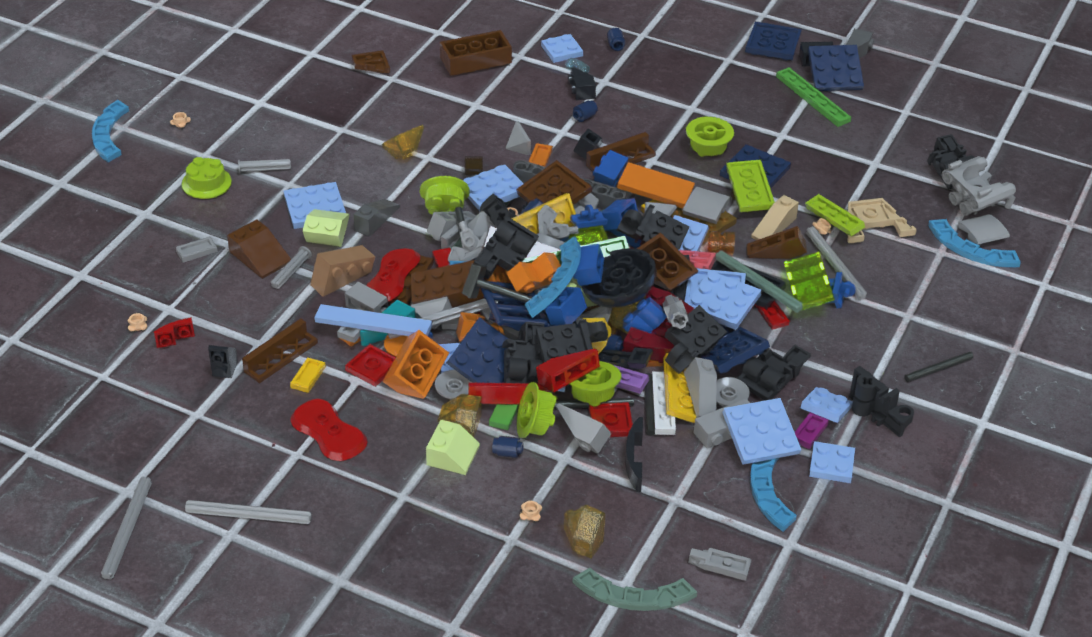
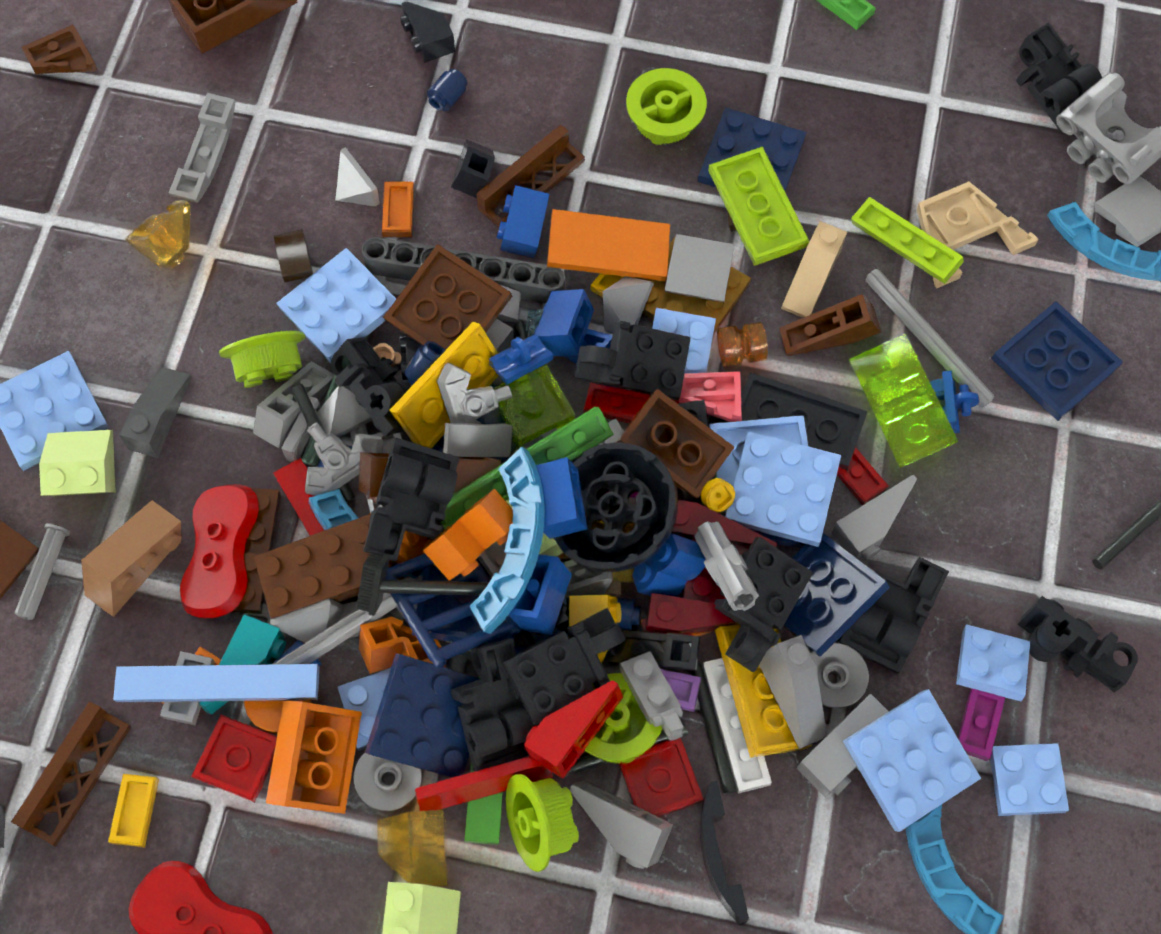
camera: 15 degrees left, 25 degrees up
(364, 298) = (190, 621): light grey hinge -> none
(441, 113) = (206, 149): none -> light grey slope
(507, 446) = (510, 892): dark blue brick -> none
(617, 367) = (653, 694): none -> light grey hinge
(682, 290) = (718, 495): none -> yellow tile
(759, 281) = (826, 423): sand green axle -> none
(779, 329) = (867, 526): none -> light grey slope
(822, 226) = (890, 264): light nougat plate -> none
(911, 285) = (1057, 360): none -> dark blue plate

